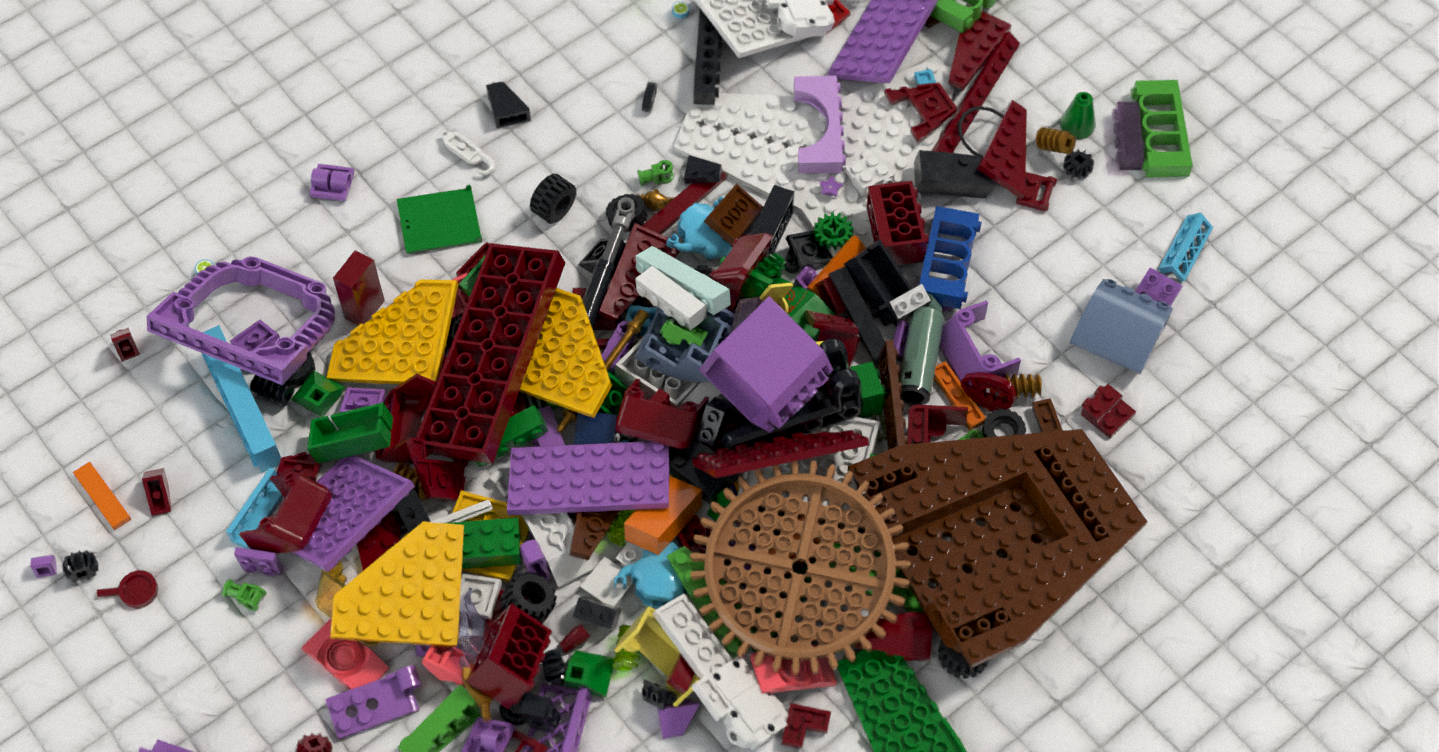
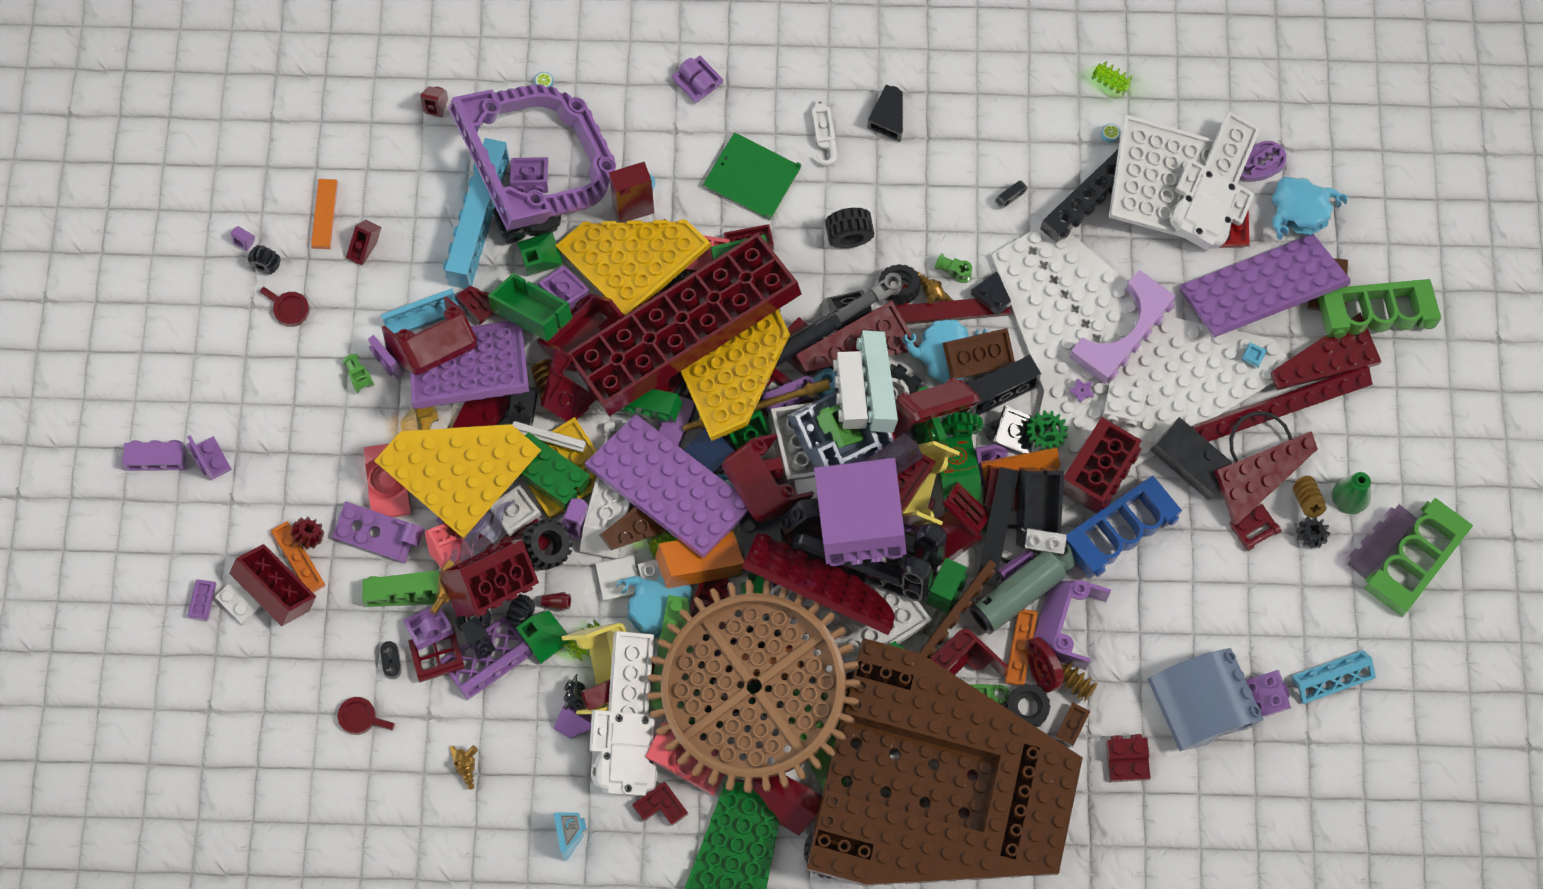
camera: 40 degrees right, 10 degrees up
(597, 612) = (587, 595): black brick -> none
(930, 103) = (1236, 380): dark red wing -> none

